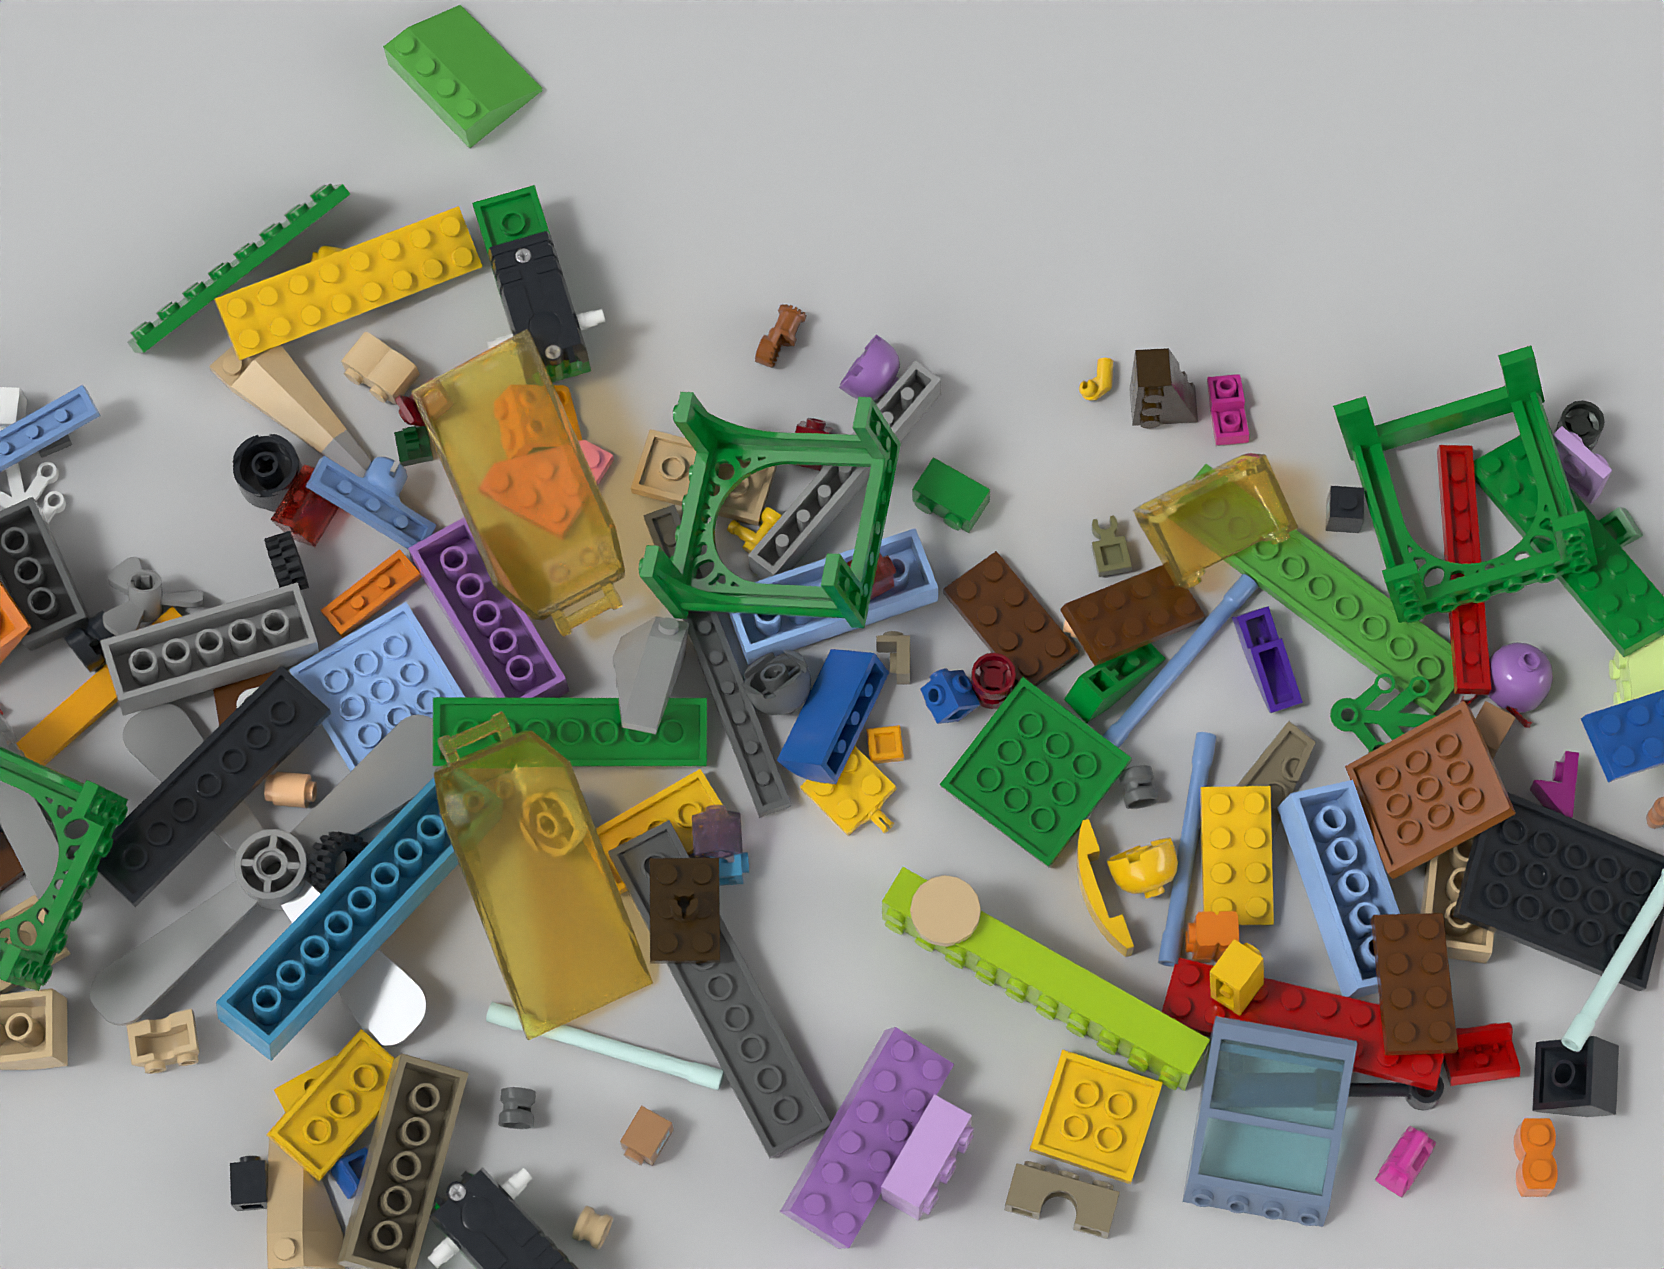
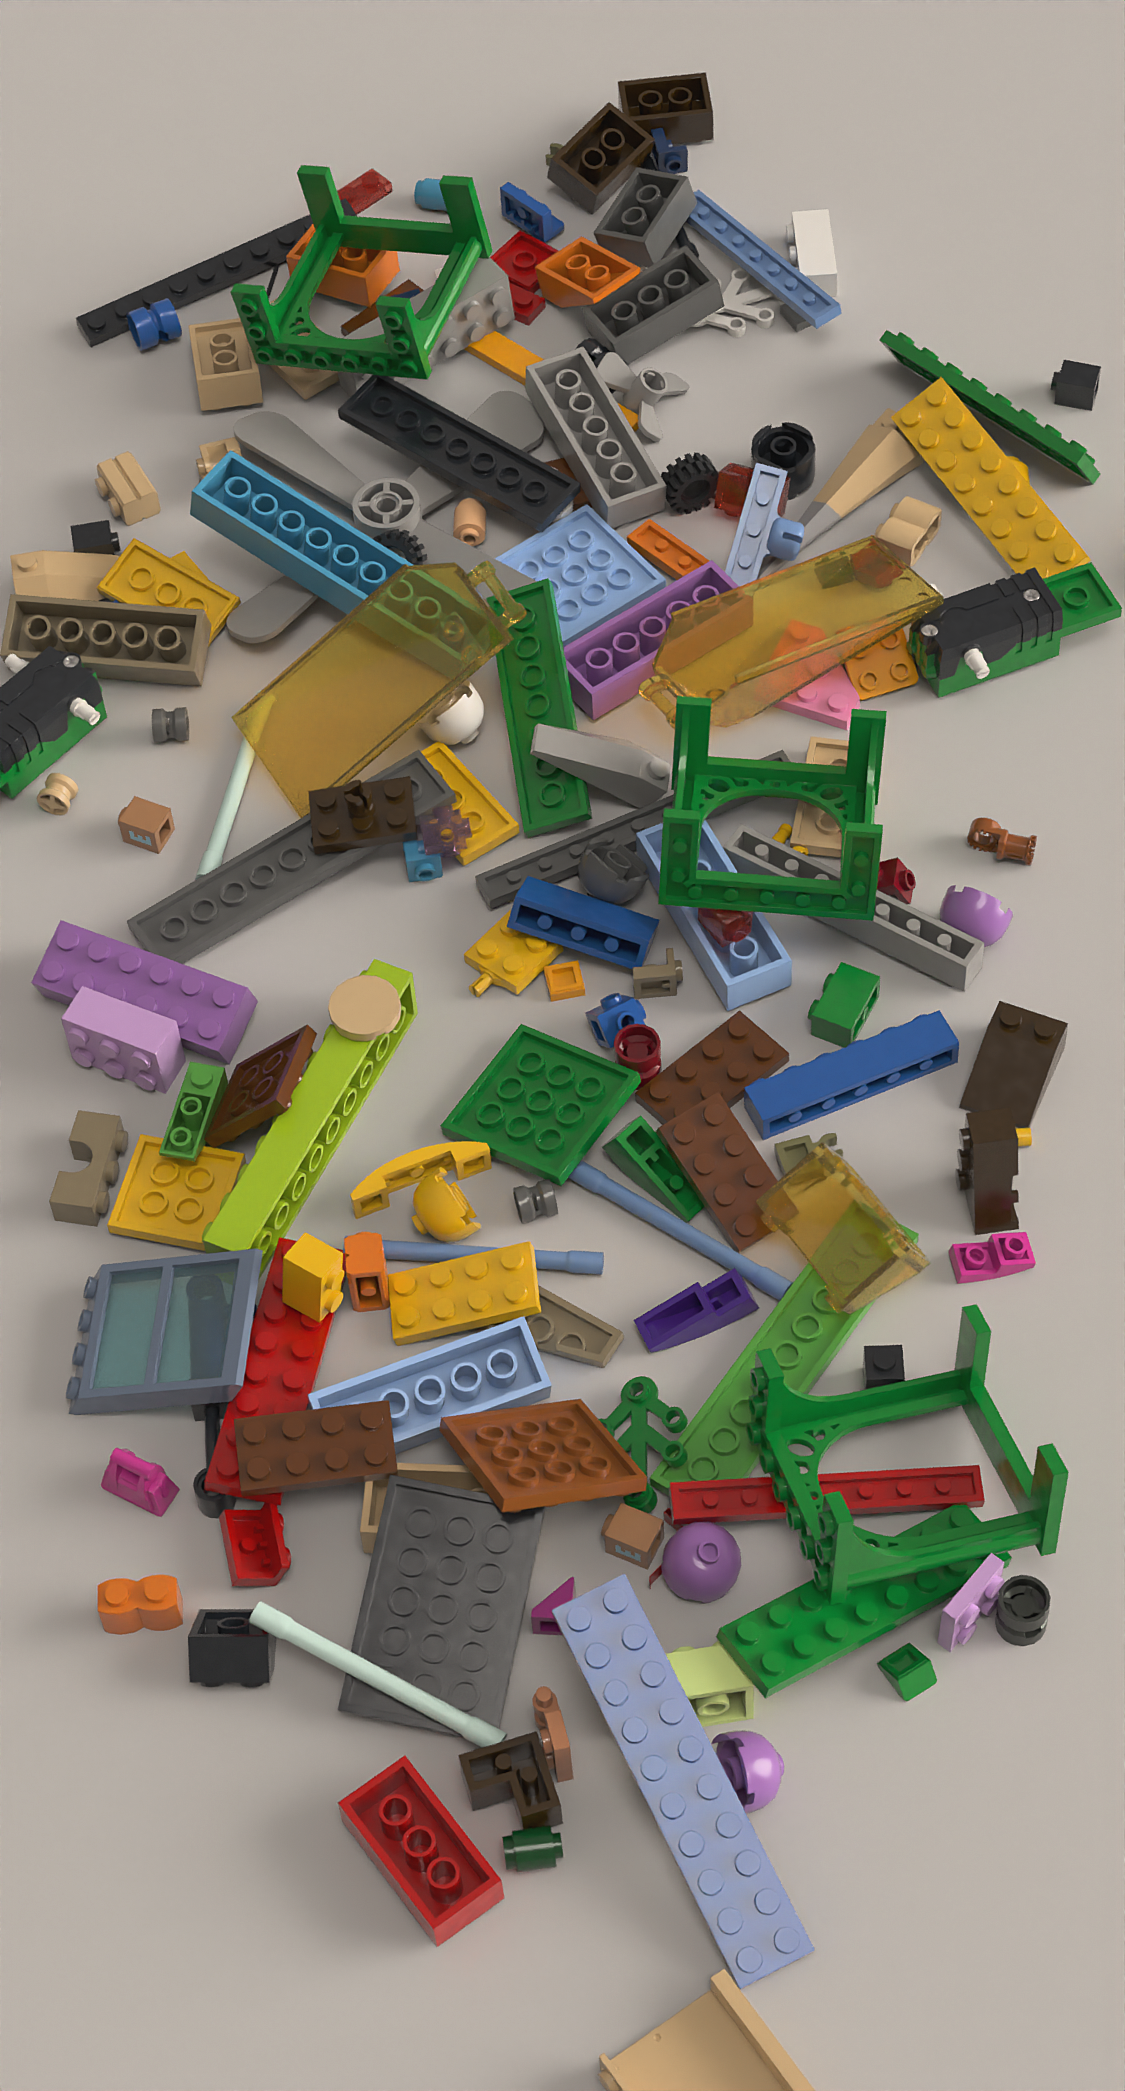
camera: 85 degrees right, 15 degrees down
(174, 1147) = (128, 489): none -> tan brick
(214, 187) = (1076, 385): none -> black brick
(1007, 1021) = (261, 1087): none -> reddish brown plate
(1018, 1093) = (194, 1111): none -> bright green slope
(1028, 500) = (851, 1074): none -> blue brick
(1033, 361) = (1015, 1063): none -> dark brown slope

